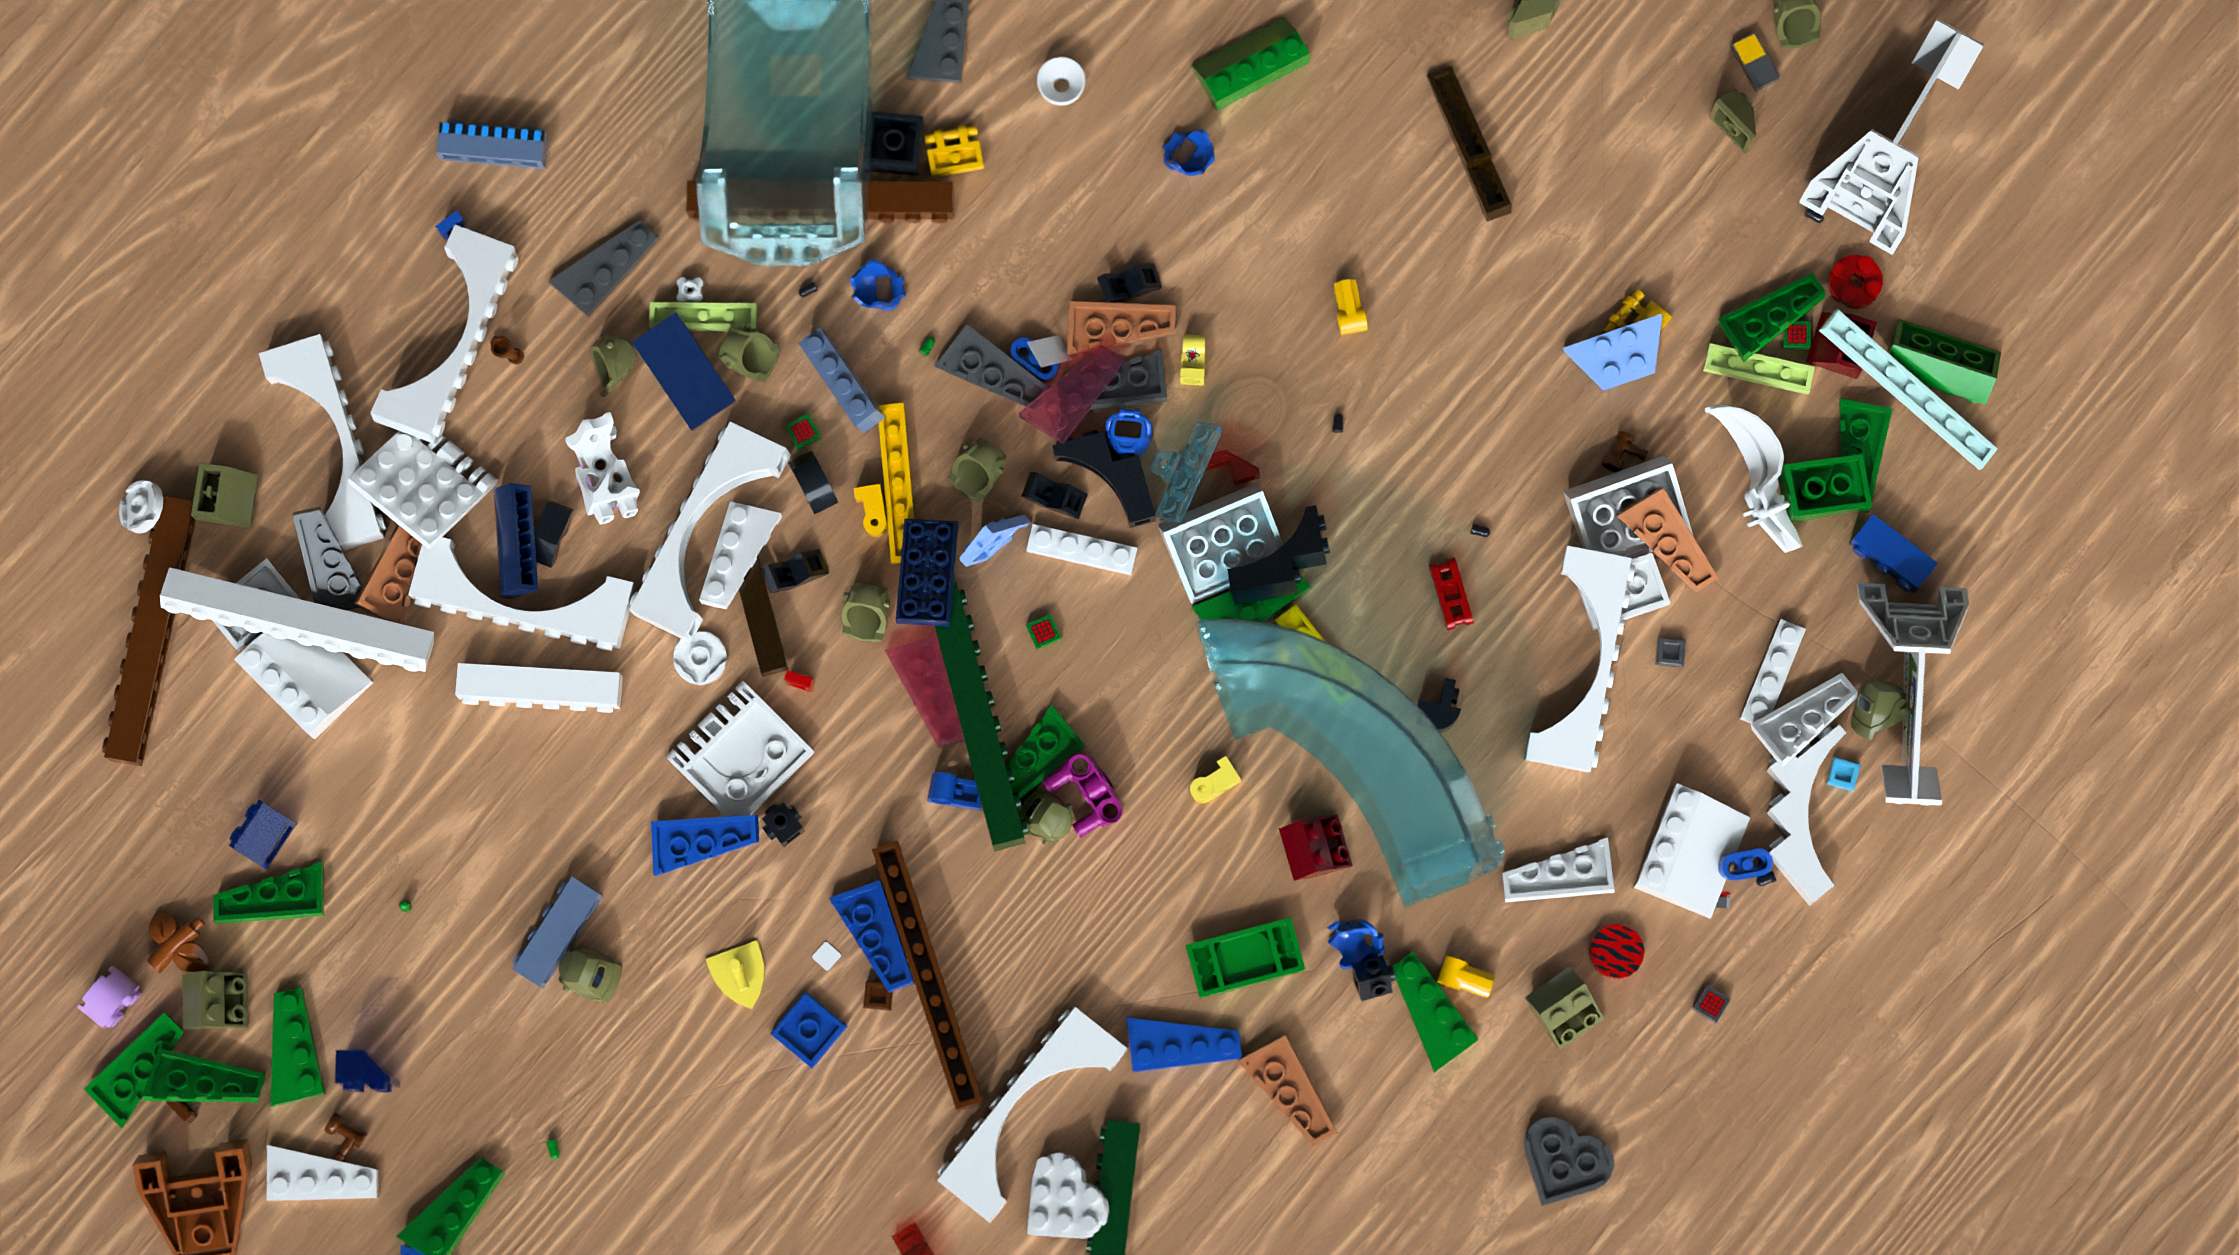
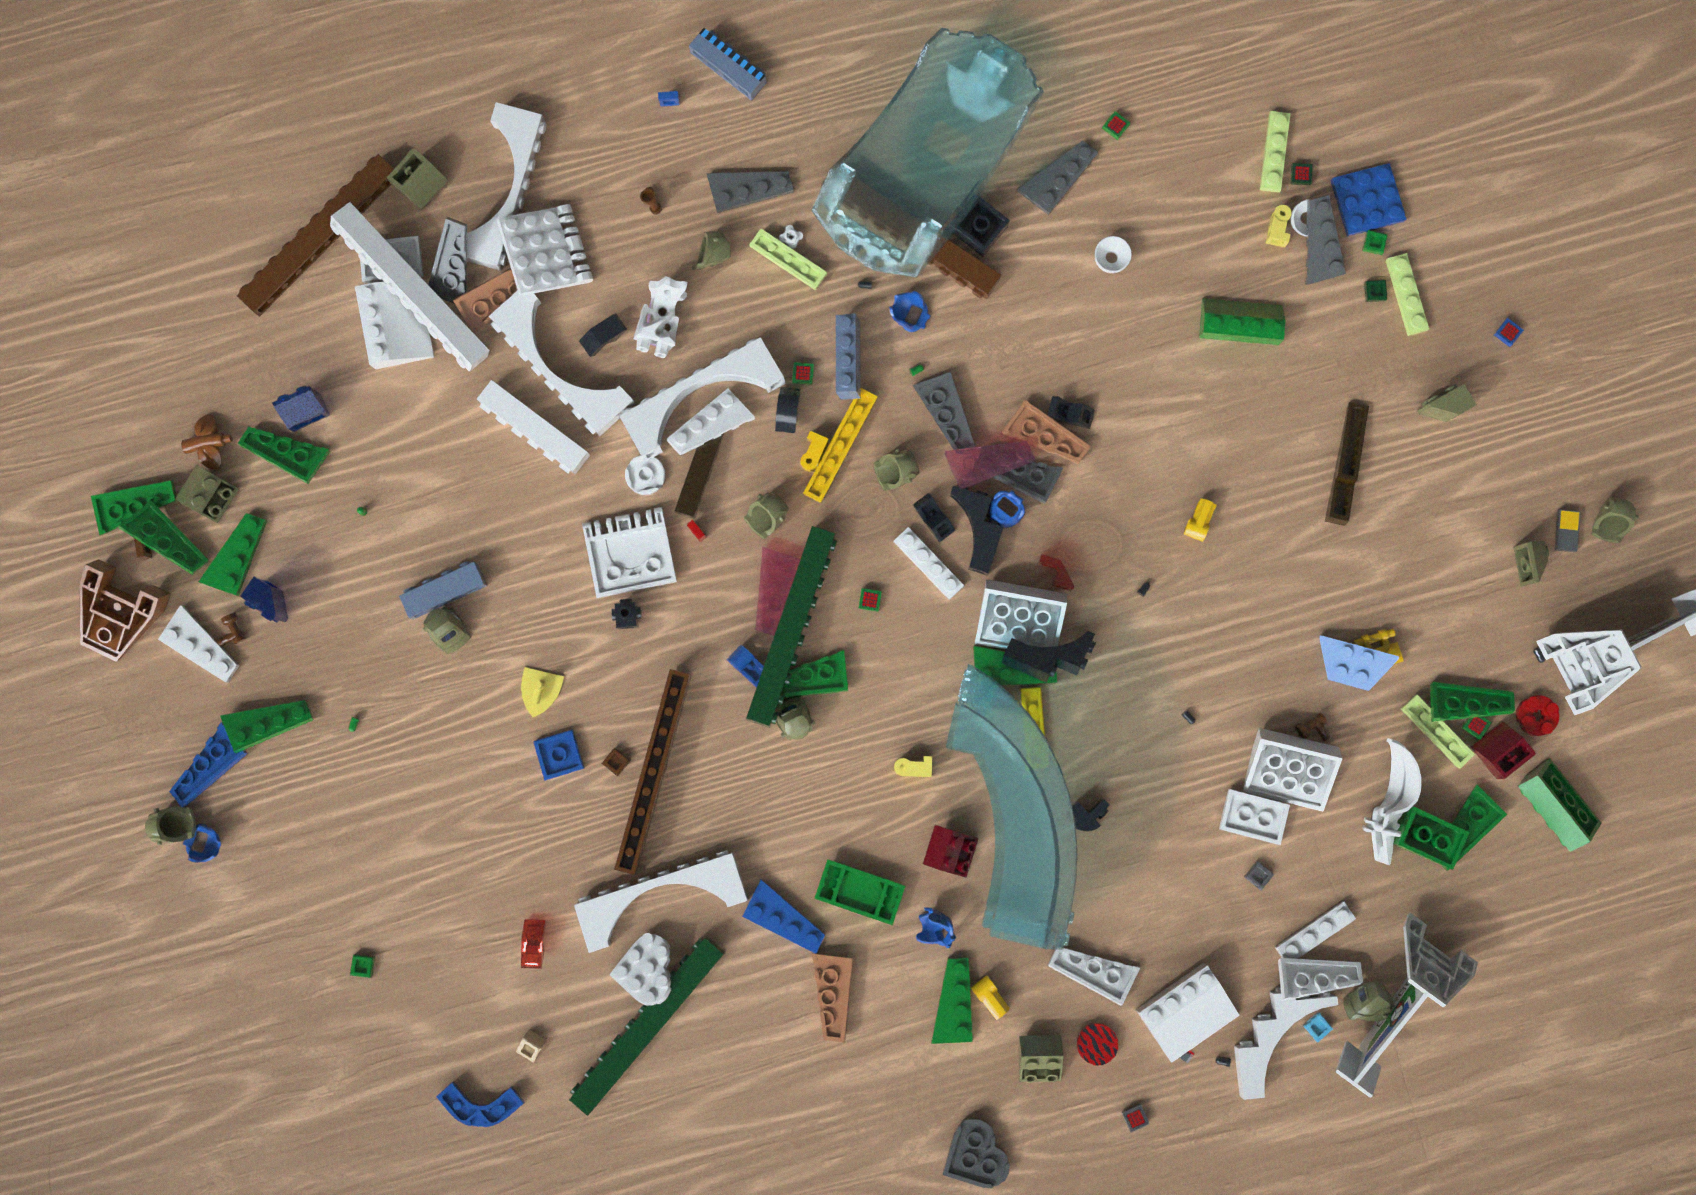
camera: 30 degrees right, 5 degrees up
(109, 998) = (141, 449): lavender brick -> none
(141, 506) = (362, 152): white tile -> none
(422, 406) = (577, 201): white arch -> none
(515, 540) = (577, 325): dark blue brick -> none
(684, 371) = (752, 286): dark blue tile -> none
(695, 840) = (564, 588): blue wing -> none
(749, 353) = (801, 301): olive helmet -> none
(796, 571) = (739, 459): black slope -> none
(826, 956) = (600, 715): white sticker -> none
(875, 931) = (640, 714): blue wing -> none
(927, 572) = (820, 515): dark blue tile -> none
(954, 158) = (1012, 260): yellow plate -> none
(991, 539) = (875, 520): light blue wing -> none
(1030, 362) = (979, 422): blue plate -> none
(1049, 351) = (991, 423): white sticker -> none
(1094, 787) = (835, 721): magenta piece -> none
(1185, 471) = (1026, 557): clear light blue plate -> none
(1193, 360) = (1078, 488): light yellow leg -> none
(1199, 161) = (1168, 362): blue helmet -> none
(1372, 977) = (931, 959): black brick -> none
(1451, 593) = (1143, 745): red plate -> none
(1603, 583) = (1161, 890): white arch -> none
(1666, 533) = (1307, 798): nougat wing -> none
(1744, 864) = (1215, 1043): blue plate -> none
(1892, 554) = (1444, 908): blue brick -> none
(1908, 389) = (1526, 809): light aqua tile -> none

